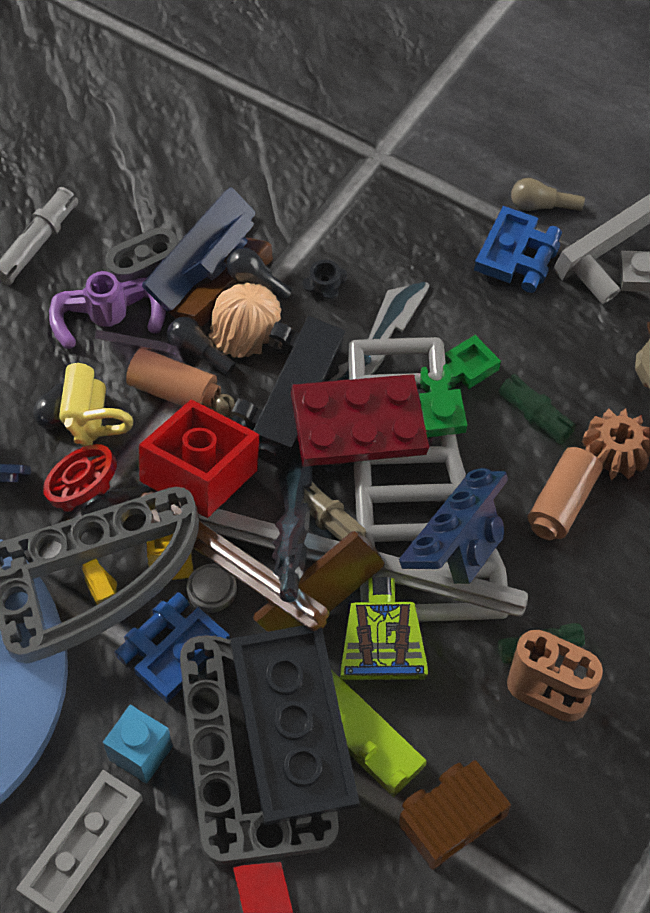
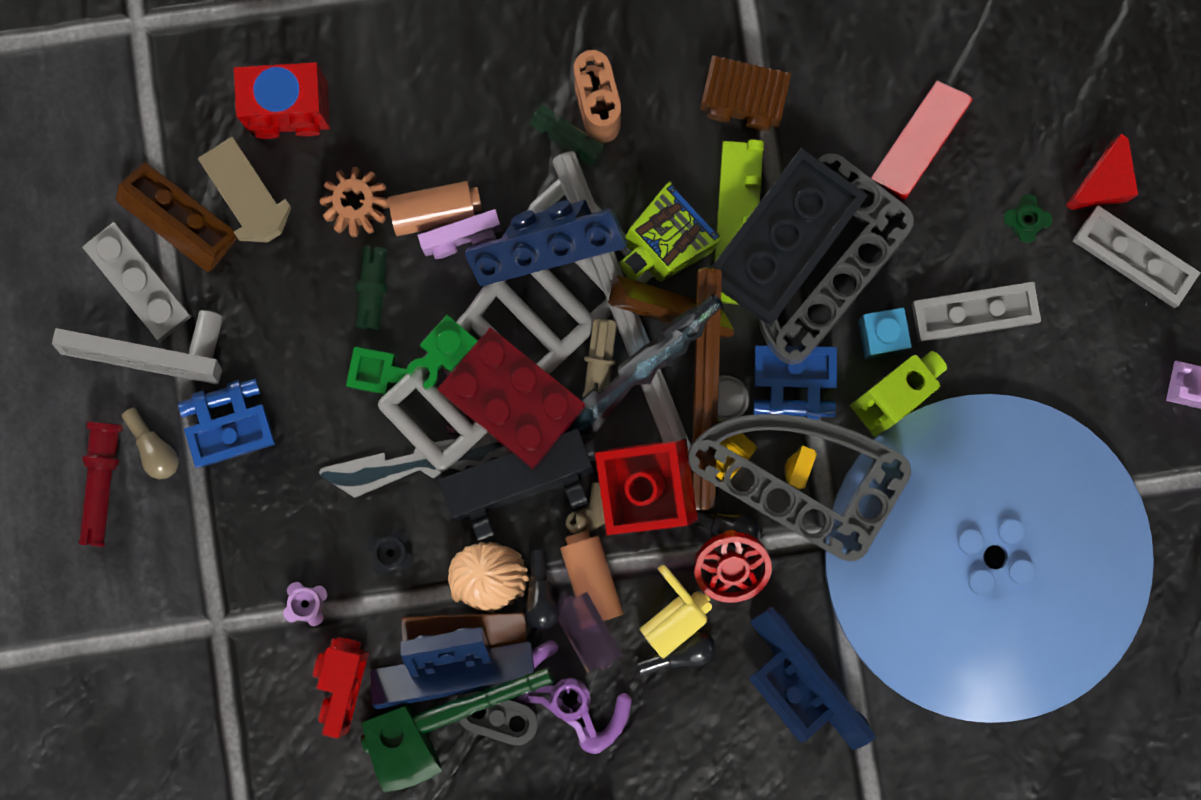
camera: 130 degrees left, 25 degrees up
(78, 690) = (899, 392): none -> lime torso
(187, 192) = (400, 740): none -> dark green piece
(247, 266) = (447, 605): black piece -> none
(262, 172) = (341, 673): none -> red plate
(341, 206) = (294, 609): none -> lavender plate
(529, 480) = (443, 240): none -> lavender plate
(558, 160) = (100, 461): none -> dark red pin

